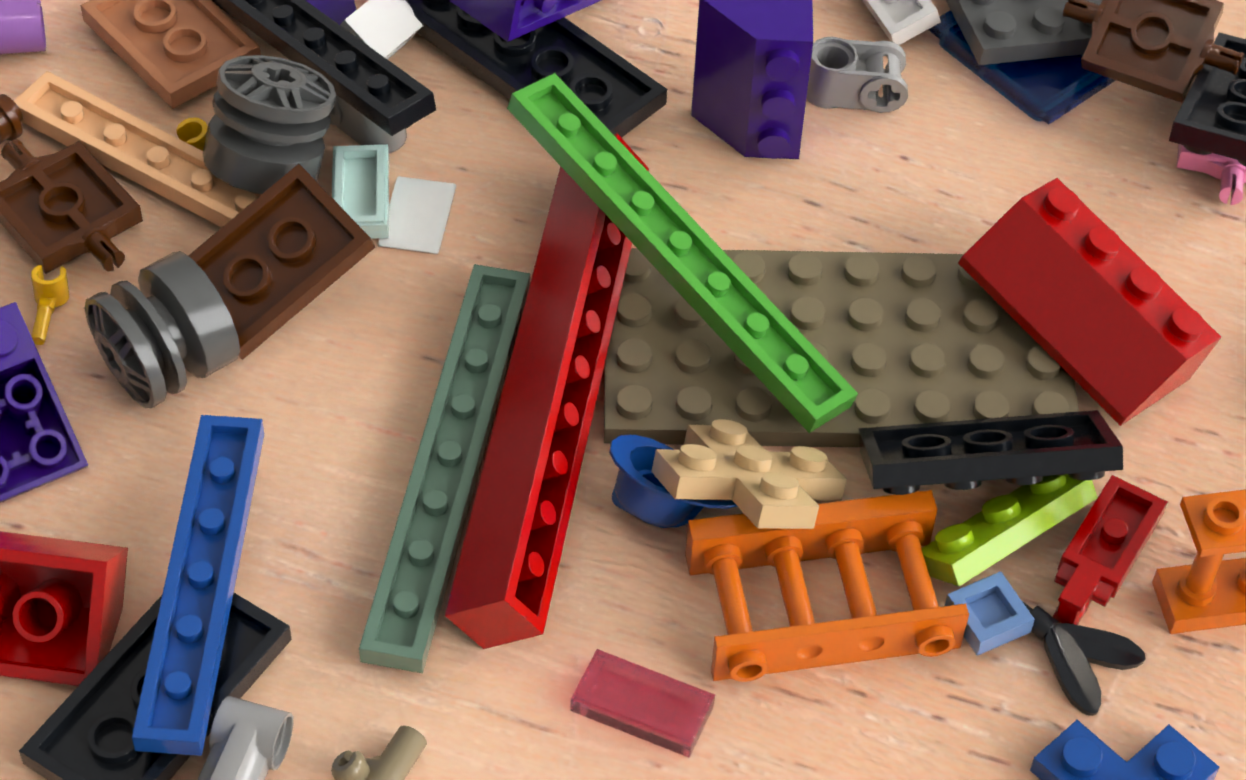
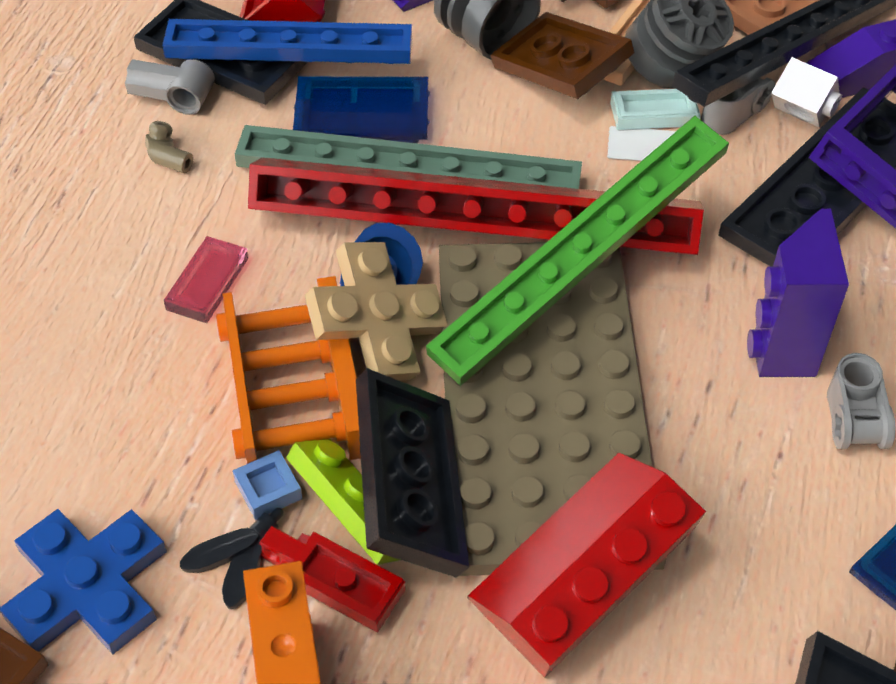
camera: 90 degrees right, 0 degrees up
(319, 515) = (363, 107): none -> clear blue piece

